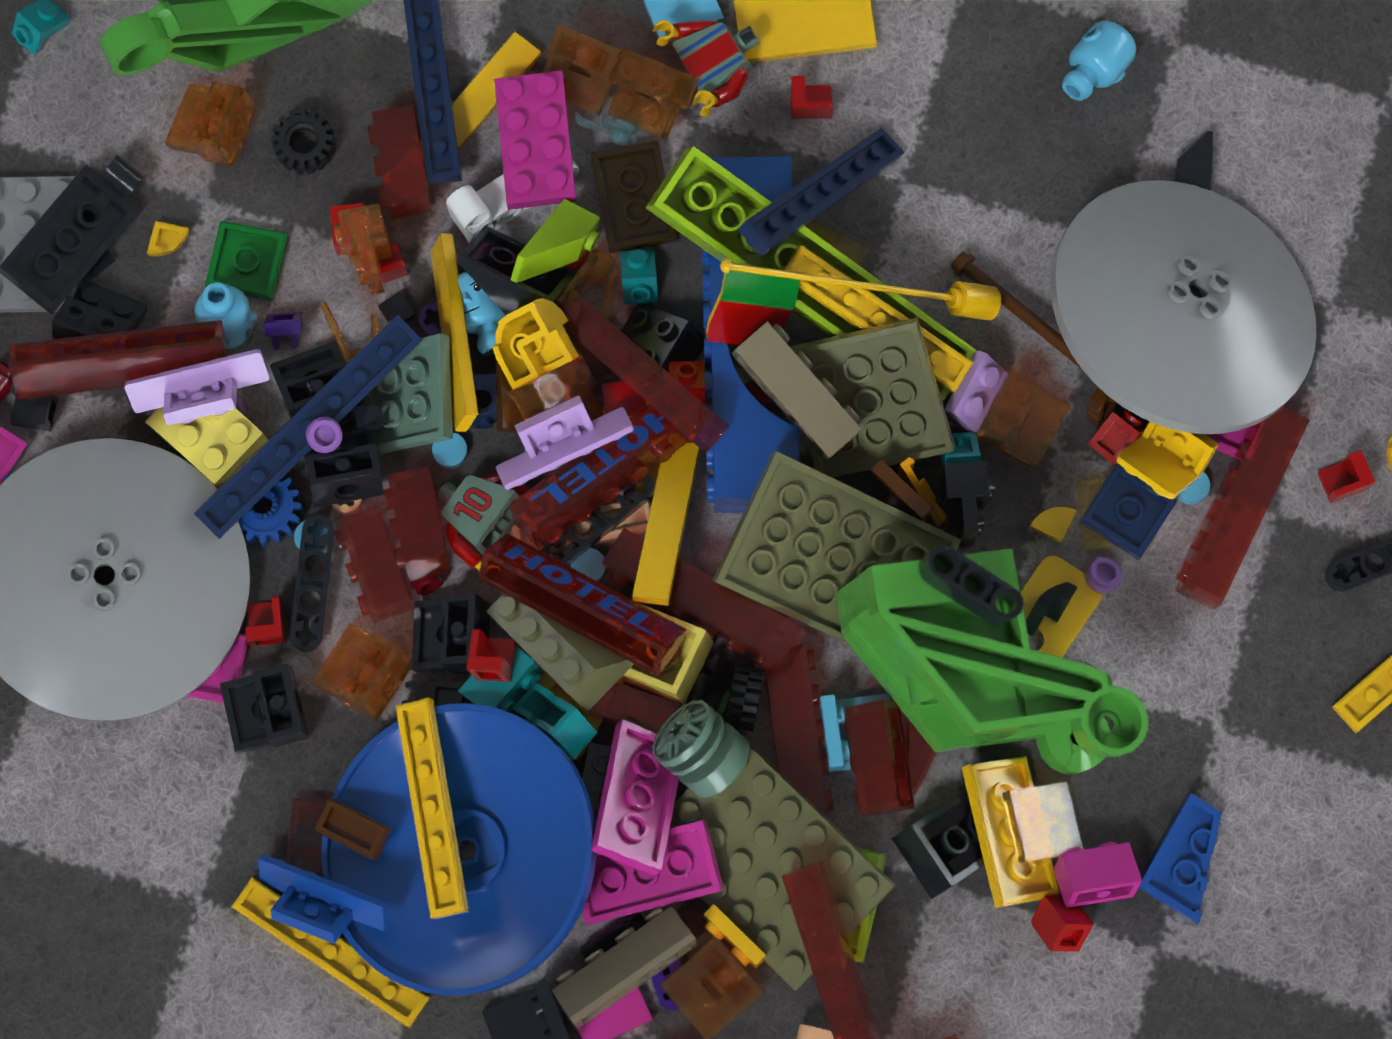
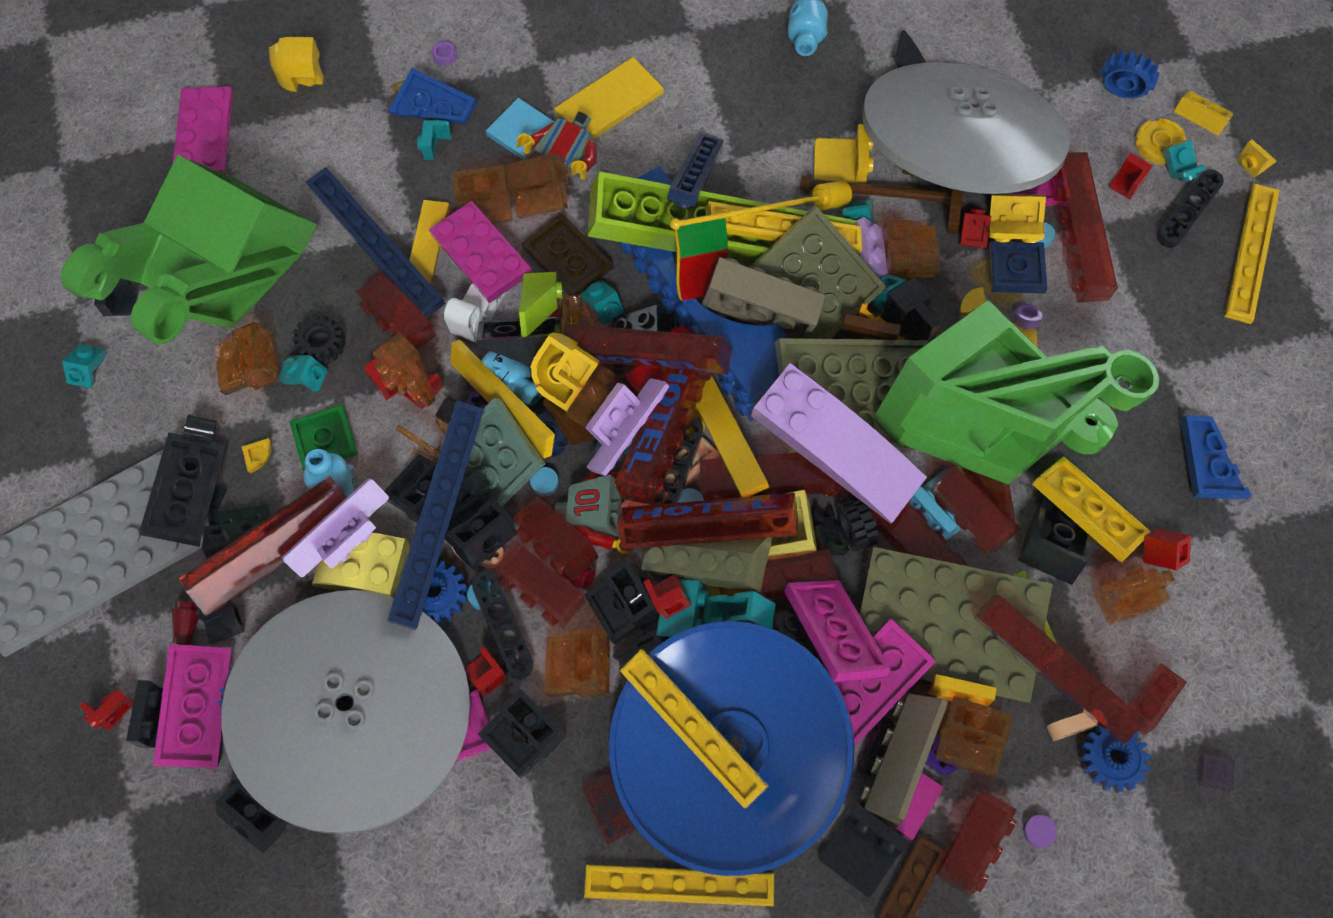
camera: 30 degrees left, 10 degrees down
(265, 170) = (303, 370): none -> teal bracket
(284, 325) = (375, 464): dark purple tile -> none
(317, 903) = (651, 851): blue bracket -> none
(323, 434) = (451, 510): medium lavender tile -> none
(353, 829) = (642, 780): reddish brown tile -> none
(619, 130) = (528, 218): clear light blue plate -> none
(701, 749) = (858, 569): sand green wheel -> none
(764, 605) = (838, 442): none -> lavender slope
(810, 100) = (644, 142): red panel -> none
(988, 585) = (984, 332): black beam -> none
(995, 339) = (859, 209): none -> teal bracket
(1002, 944) = (1146, 587): none -> clear orange brick
(1020, 258) = (844, 158): none -> yellow bracket
(1042, 821) = (1107, 490): clear yellow tile -> none
(1097, 874) = (1168, 501): dark pink brick -> none

